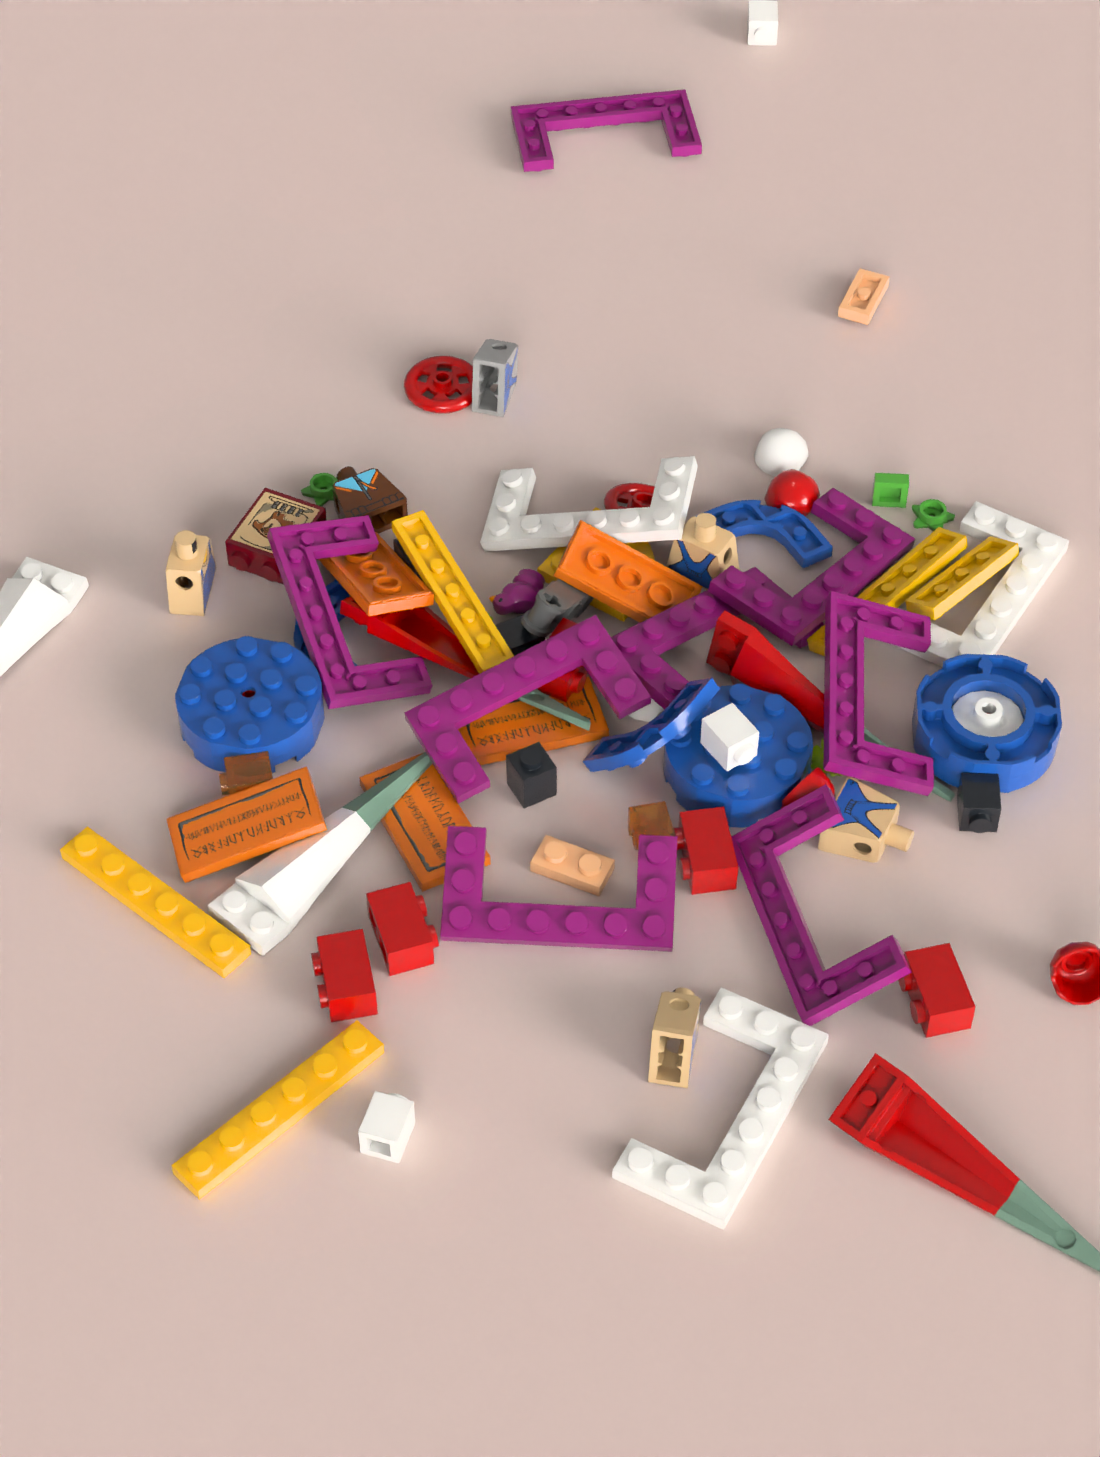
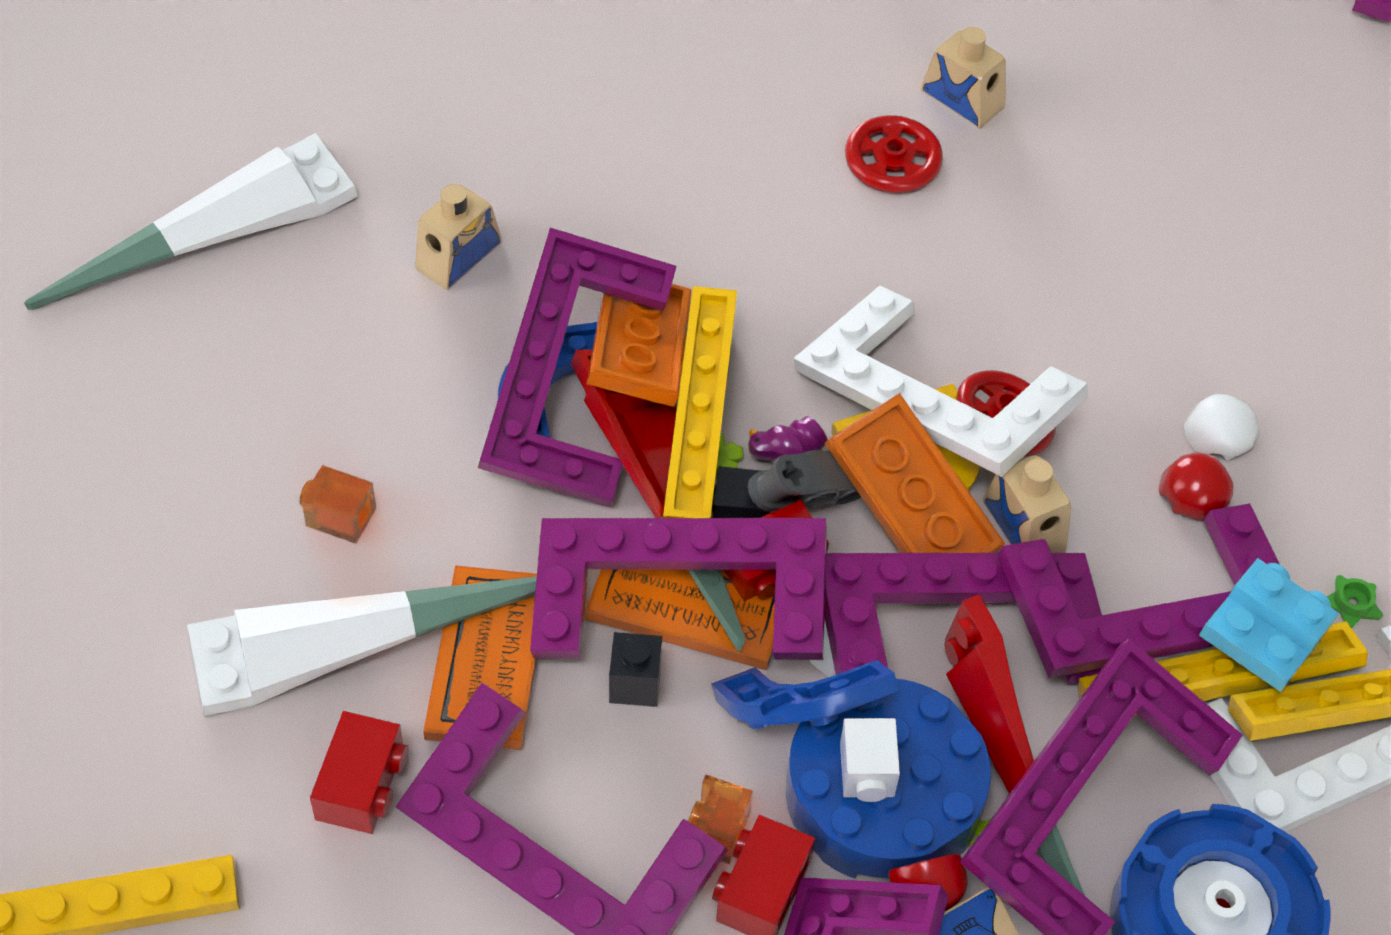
camera: 30 degrees right, 5 degrees up
(156, 902) = (145, 592): yellow plate -> none
(246, 824) = (293, 554): orange tile -> none
(248, 543) = (586, 212): brick -> none
(250, 700) = (403, 416): blue piece -> none
(317, 483) = (674, 201): bright green plate -> none
(346, 975) = (258, 794): red brick -> none
(369, 495) = (704, 247): reddish brown torso -> none
(459, 309) = (967, 77): none -> tan torso
(494, 364) = (949, 171): light grey torso -> none
(572, 865) = (606, 805): light nougat plate -> none
(782, 524) = (1156, 516): blue plate -> none
(890, 490) = (1319, 542): bright green plate -> none
(900, 545) = (1270, 623): none -> medium azure plate

